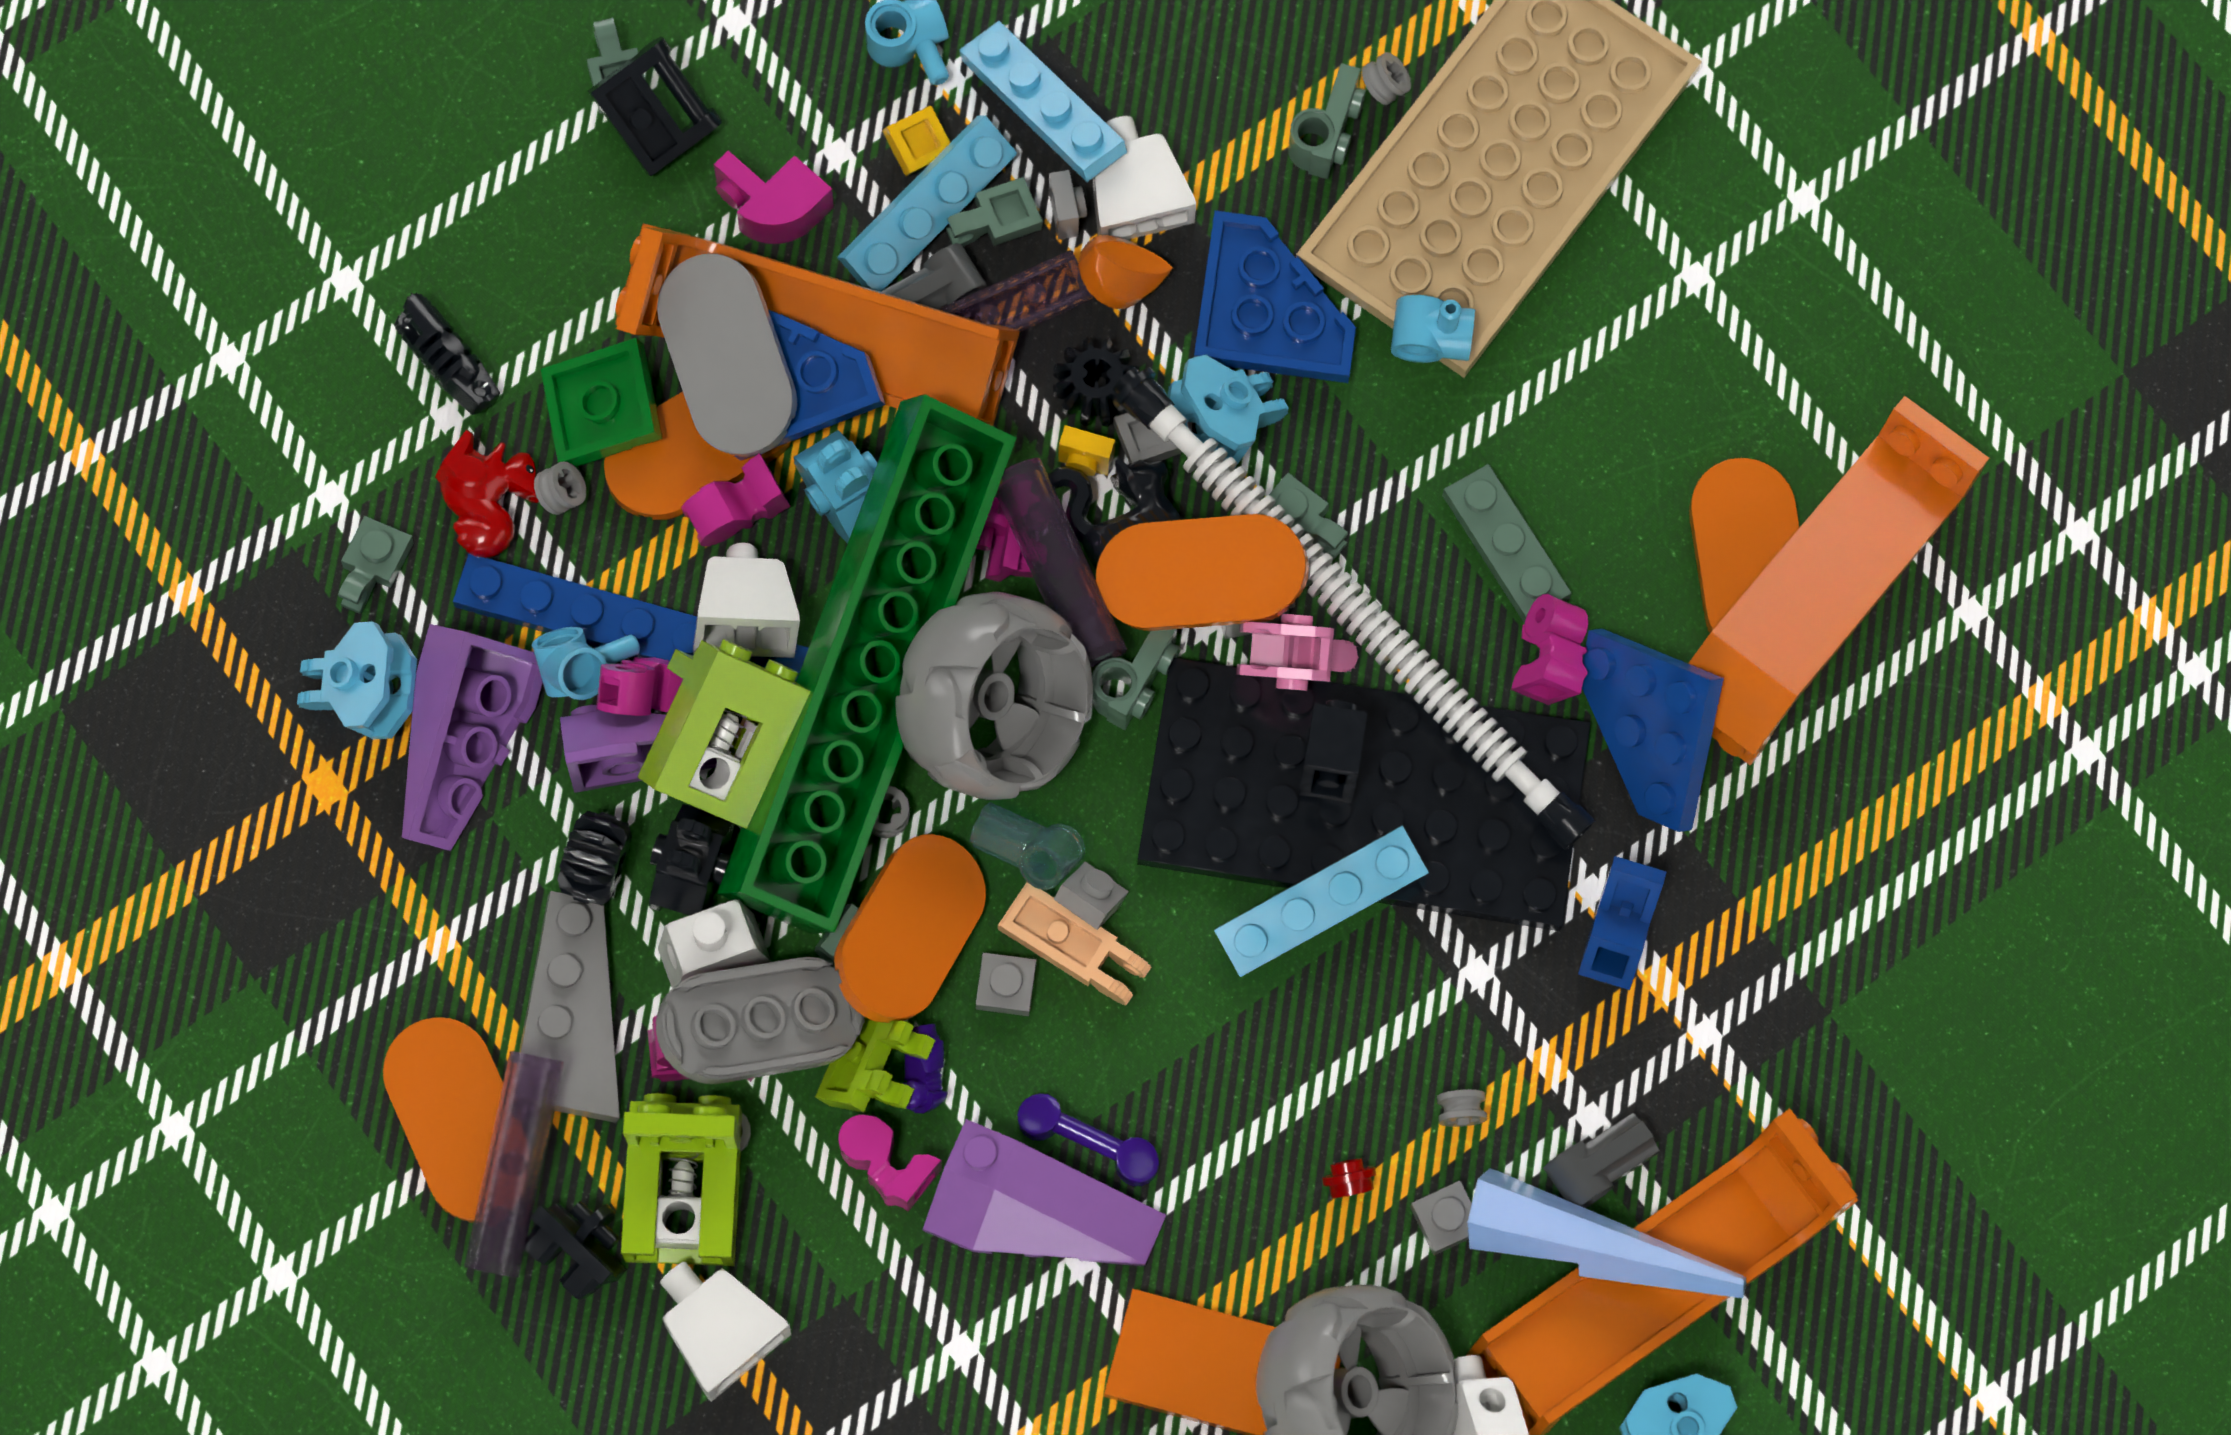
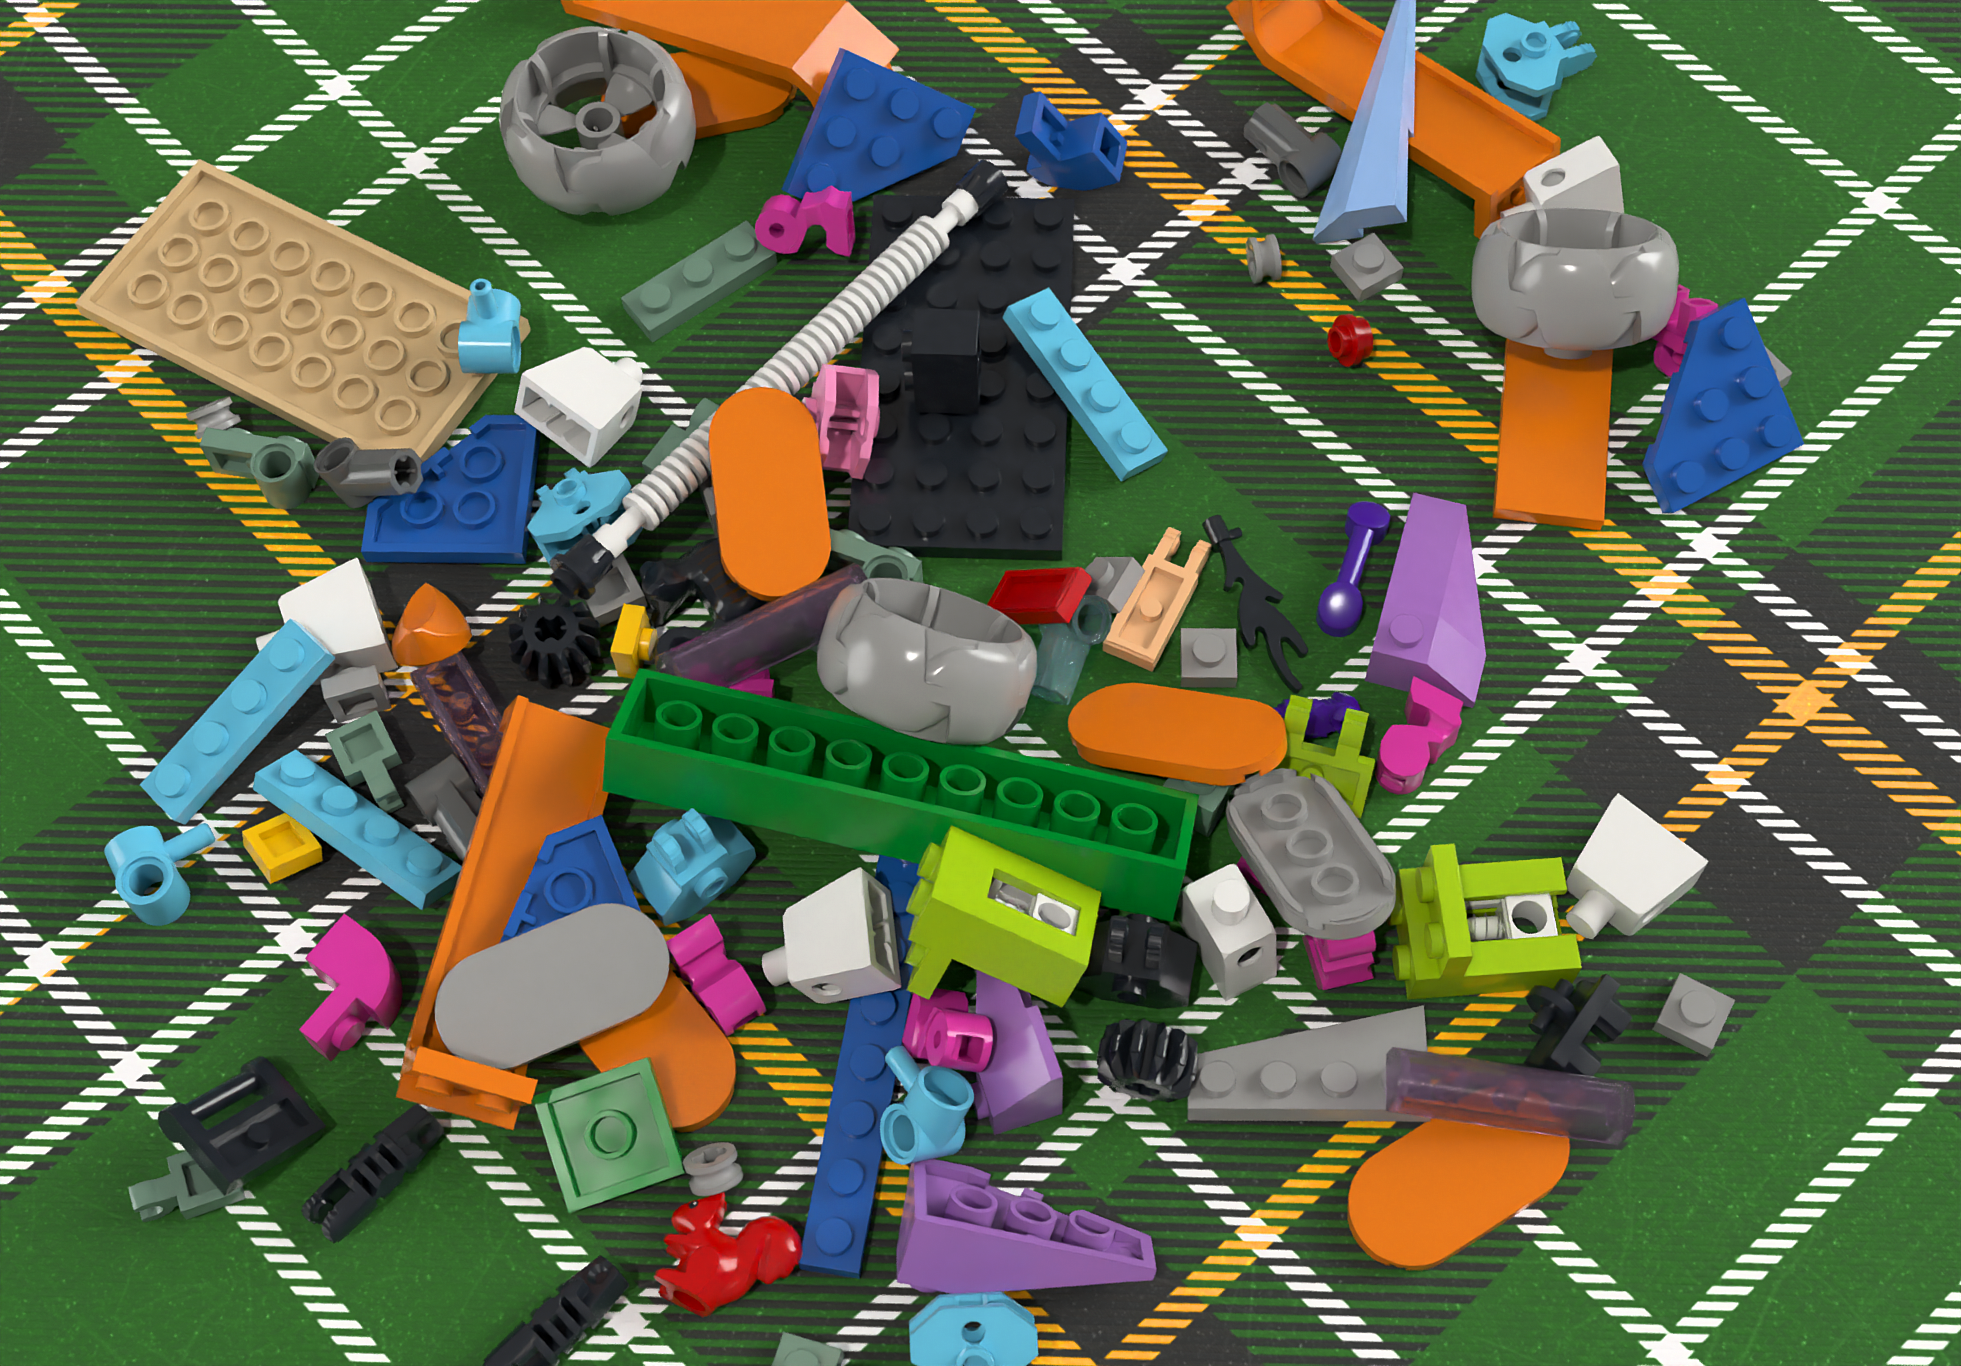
camera: 90 degrees left, 10 degrees down
(577, 1363) = (1693, 1014): none -> light grey plate
(595, 208) = (372, 1173): none -> black hinge
(1050, 1033) = (1252, 609): none -> black piece
(1078, 822) = (1040, 594): none -> red tile
(1294, 214) = (368, 473): none -> dark grey piece
(1355, 419) = (581, 401): none -> white torso
(1727, 486) = (608, 169): none -> light grey wheel

